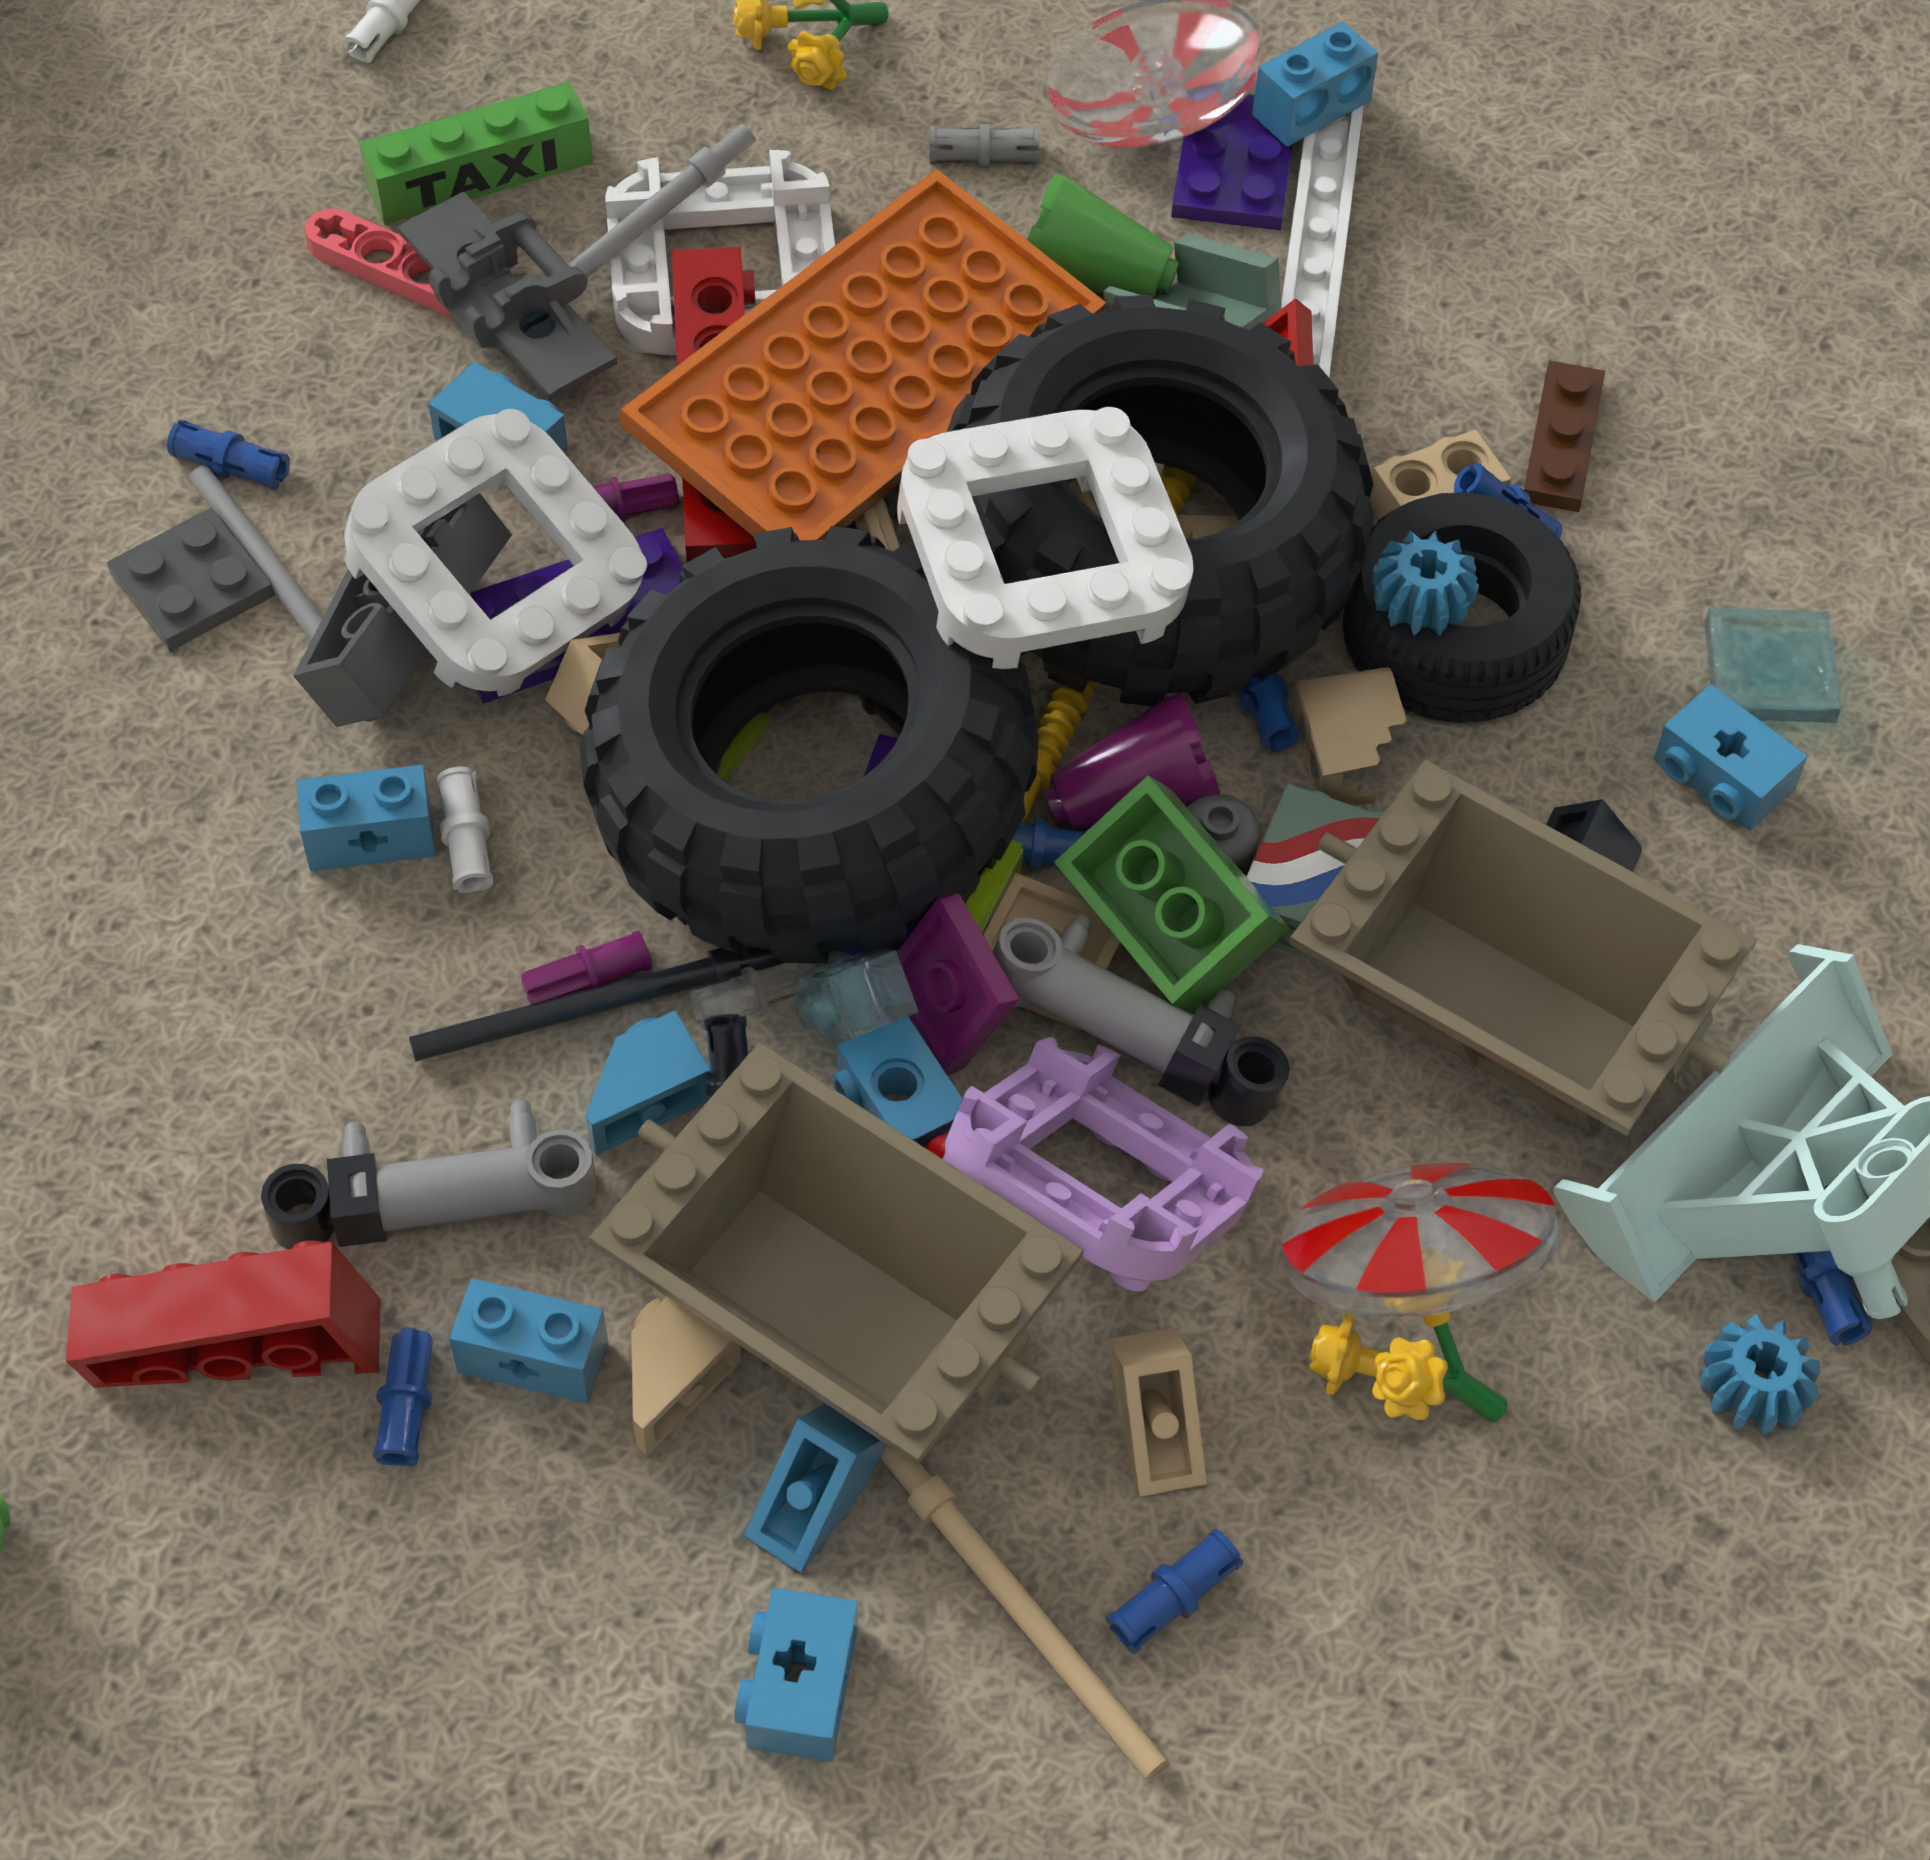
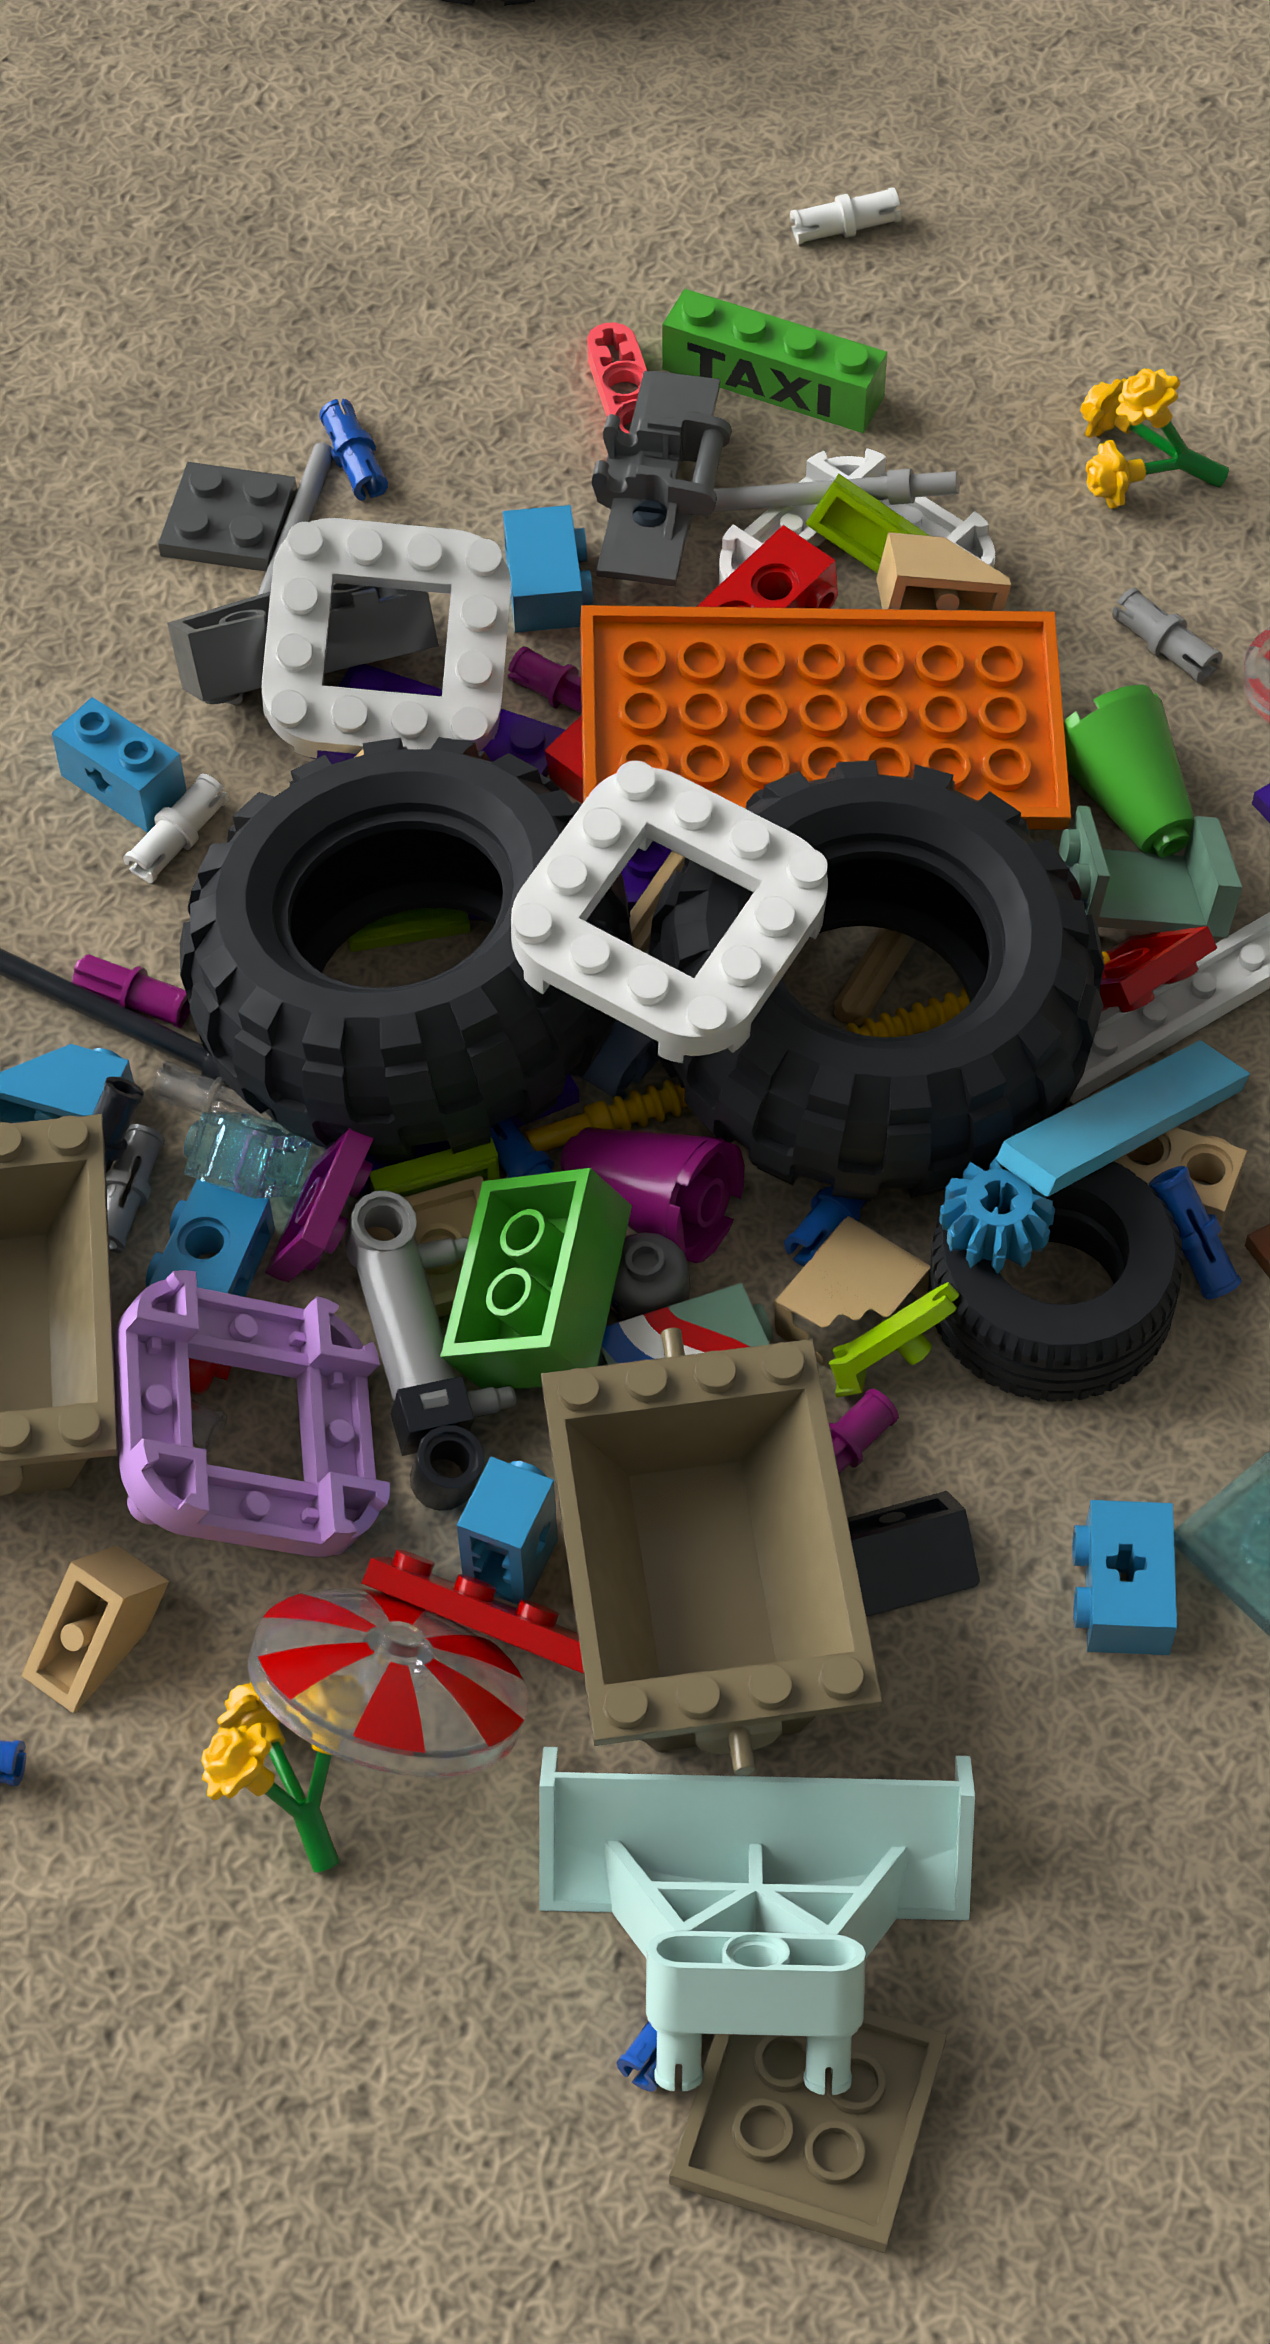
camera: 50 degrees right, 0 degrees up
(708, 219) = (857, 522): none -> lime tile
(813, 214) = (937, 575): none -> tan slope
(1357, 1075) = (509, 1528): none -> dark azure brick
(1381, 1150) = (472, 1605): none -> red plate
(1404, 466) = (1121, 1118): none -> medium azure tile
(1427, 723) = (898, 1332): none -> lime piece
(1768, 1400) = (501, 2042): dark azure gear -> none

